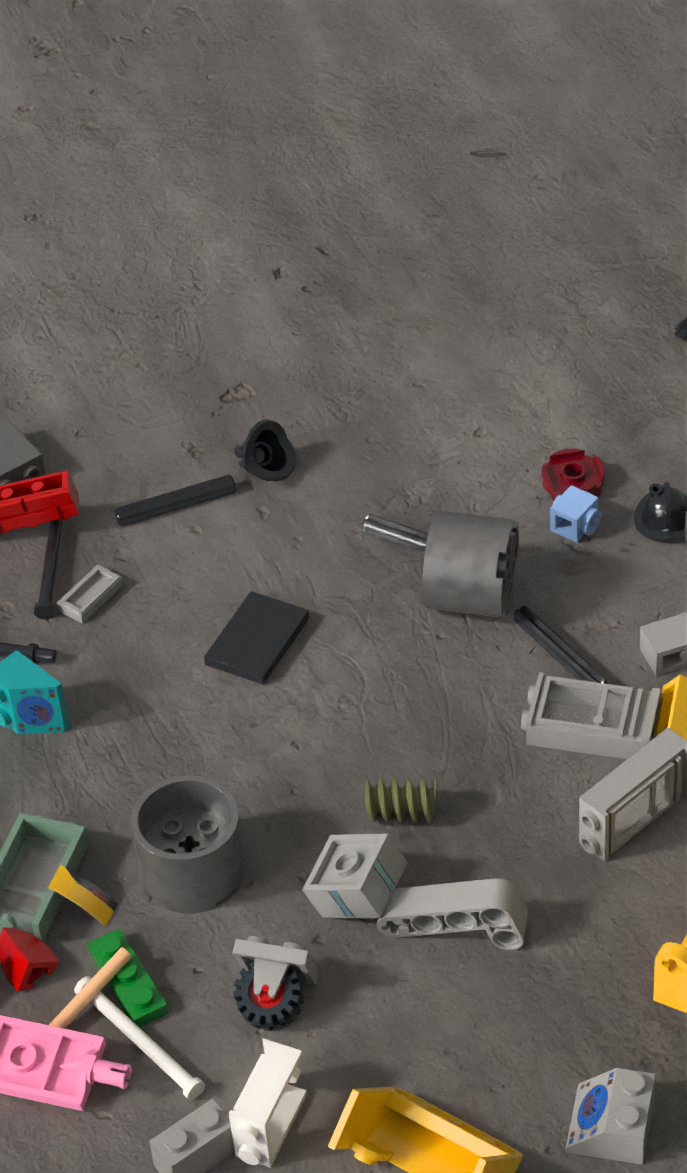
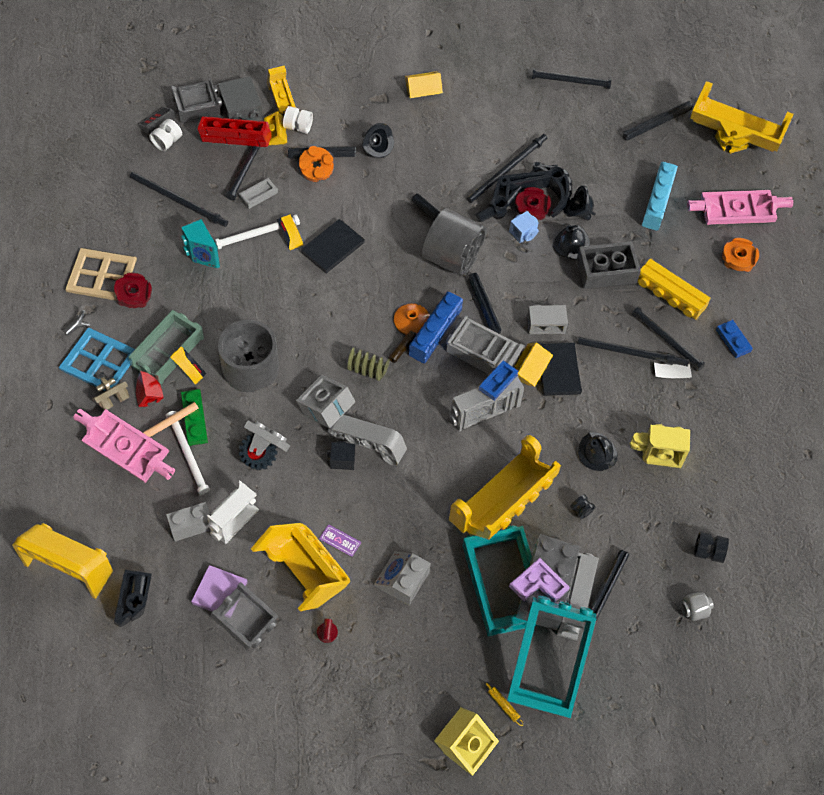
camera: 10 degrees right, 15 degrees up
(58, 416) = (278, 85): none -> yellow bracket
(88, 492) = (276, 126): none -> yellow slope
(113, 460) = (300, 120): none -> white wheel
(169, 503) = (312, 155): none -> orange plate
(172, 617) = (252, 233): none -> white bar
(173, 636) = (290, 232): none -> yellow sticker
(306, 349) = (423, 84): none -> yellow brick
(420, 958) = (341, 456): none -> black brick
(445, 712) = (405, 323): none -> orange dish
(448, 756) = (402, 347): none -> dark brown piece
(474, 1097) = (340, 540): none -> medium lavender sticker
(493, 708) = (435, 327): none -> blue brick
(537, 385) = (536, 143): none -> black bar
(552, 274) = (574, 79): none -> black bar
(566, 429) = (540, 177): none -> black piece
(646, 744) = (498, 380): none -> blue plate
(655, 451) = (581, 204): none -> black helmet

